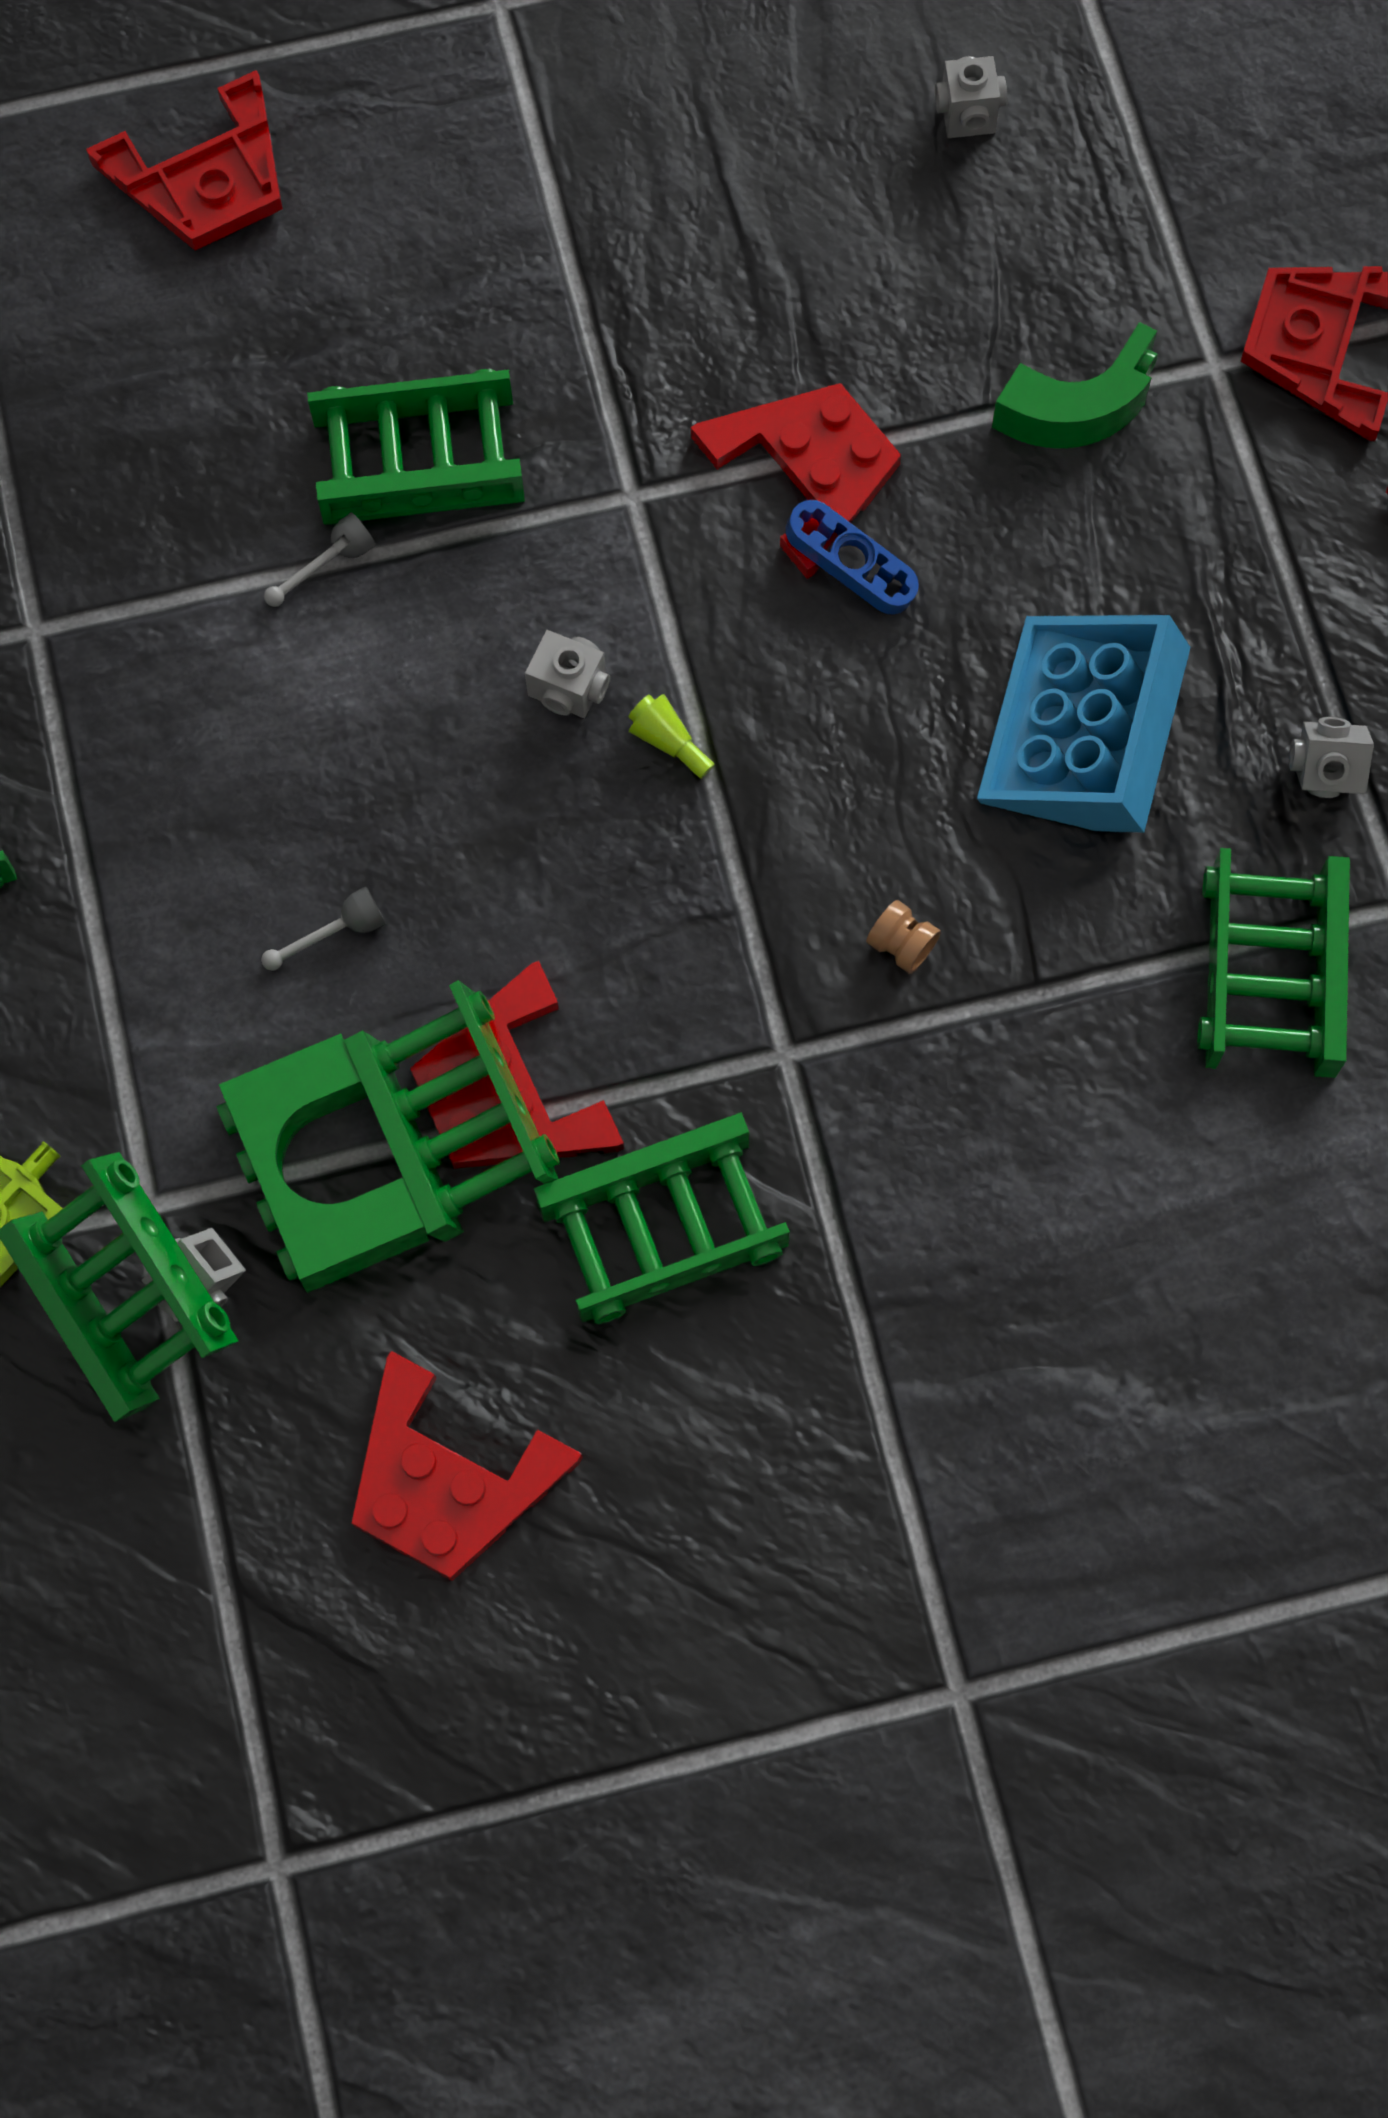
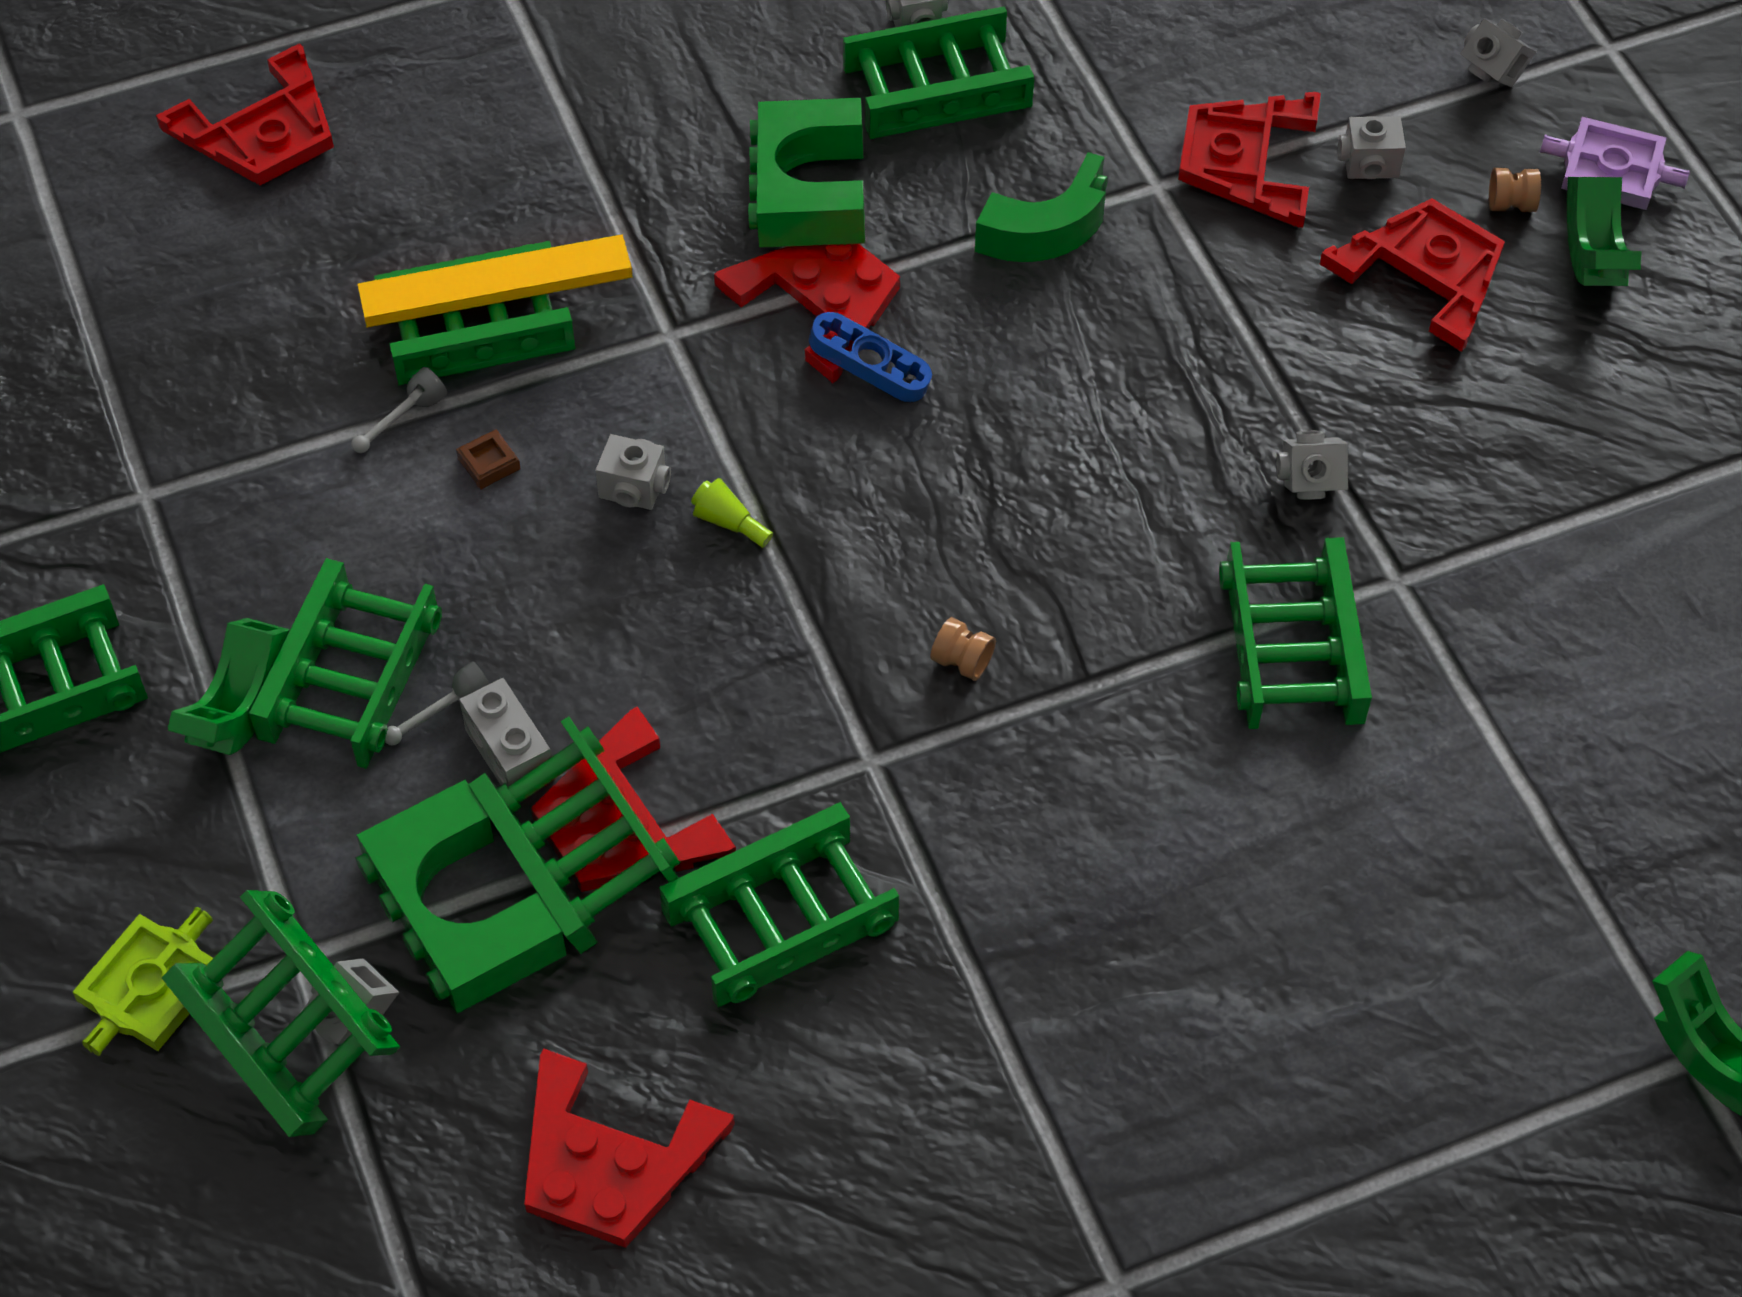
camera: 10 degrees left, 15 degrees down
(111, 893) = (222, 715): none -> green arch
(200, 827) = (314, 631): none -> green fence
(390, 980) = (503, 732): none -> light grey brick
(412, 632) = (488, 459): none -> reddish brown tile
(442, 413) = (494, 280): none -> yellow tile
(803, 256) = (797, 210): none -> green arch
(991, 229) = (941, 102): none -> green fence
(1086, 720) = (1095, 461): dark azure slope -> none

